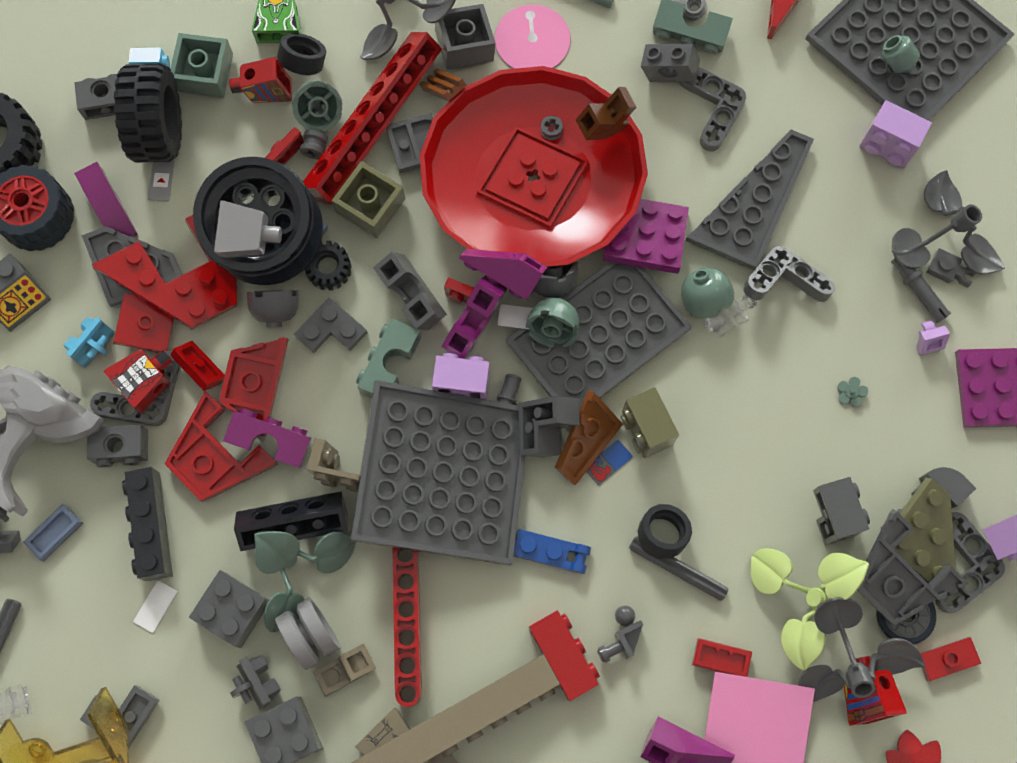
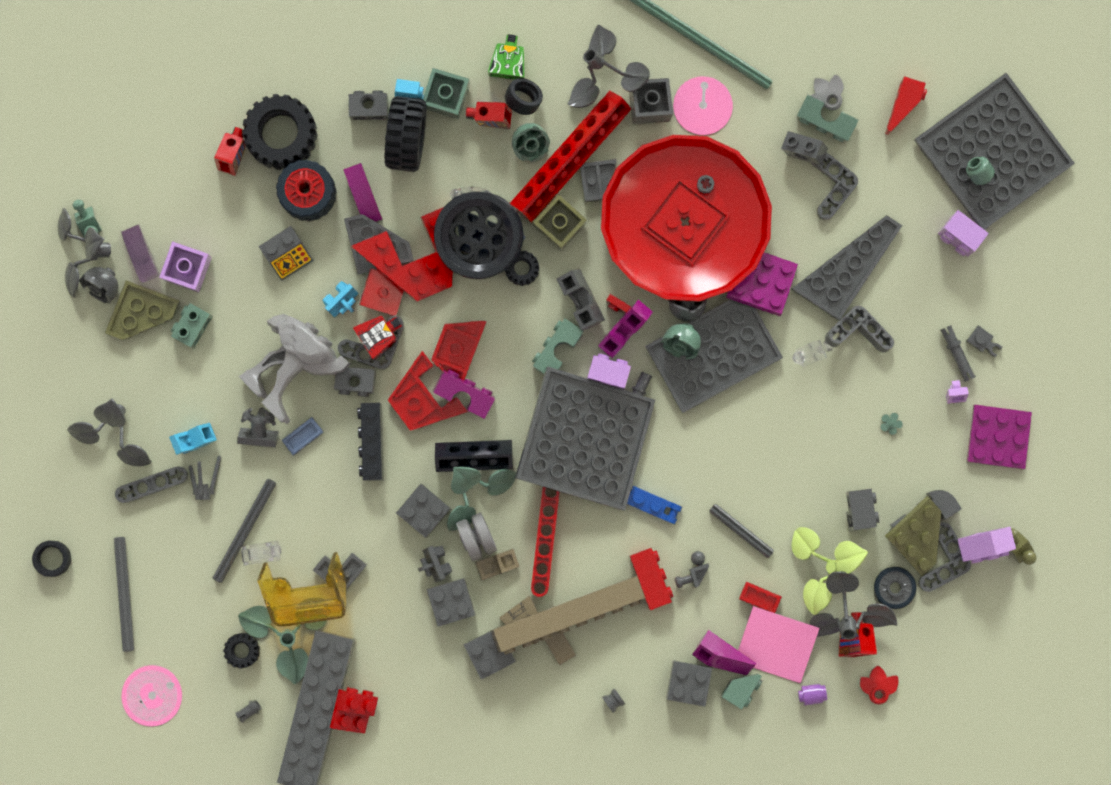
camera: 10 degrees right, 10 degrees up
(155, 606) = (369, 499): white sticker -> none
(161, 181) = (403, 182): light grey sticker -> none
(198, 365) = (418, 330): red plate -> none
(243, 231) = (471, 250): light grey torso -> none
(273, 306) = (478, 293): dark grey cylinder -> none
(284, 150) = (499, 172): red plate -> none
(313, 144) = (523, 170): dark grey wheel -> none
(324, 464) = (502, 416): dark tan bracket -> none
(328, 321) = (518, 310): dark grey plate -> none
(446, 81) = (621, 130): dark orange tile -> none
(513, 270) = (657, 300): magenta slope -> none
(513, 316) = (654, 329): white sticker -> none
(542, 424) = (661, 415): dark grey brick -> none
(589, 439) = (693, 428): dark orange wing -> none
(606, 119) = (746, 191): reddish brown brick -> none
(609, 462) = (705, 447): sticker -> none
(649, 423) = (738, 425): olive brick -> none
(673, 515) = (742, 491): black tyre -> none
(707, 292) = (798, 335): sand green cylinder -> none
(893, 584) = (888, 567): dark grey wing -> none
(943, 196) = (992, 286): dark grey plant -> none
(950, 659) = (918, 622): red plate -> none

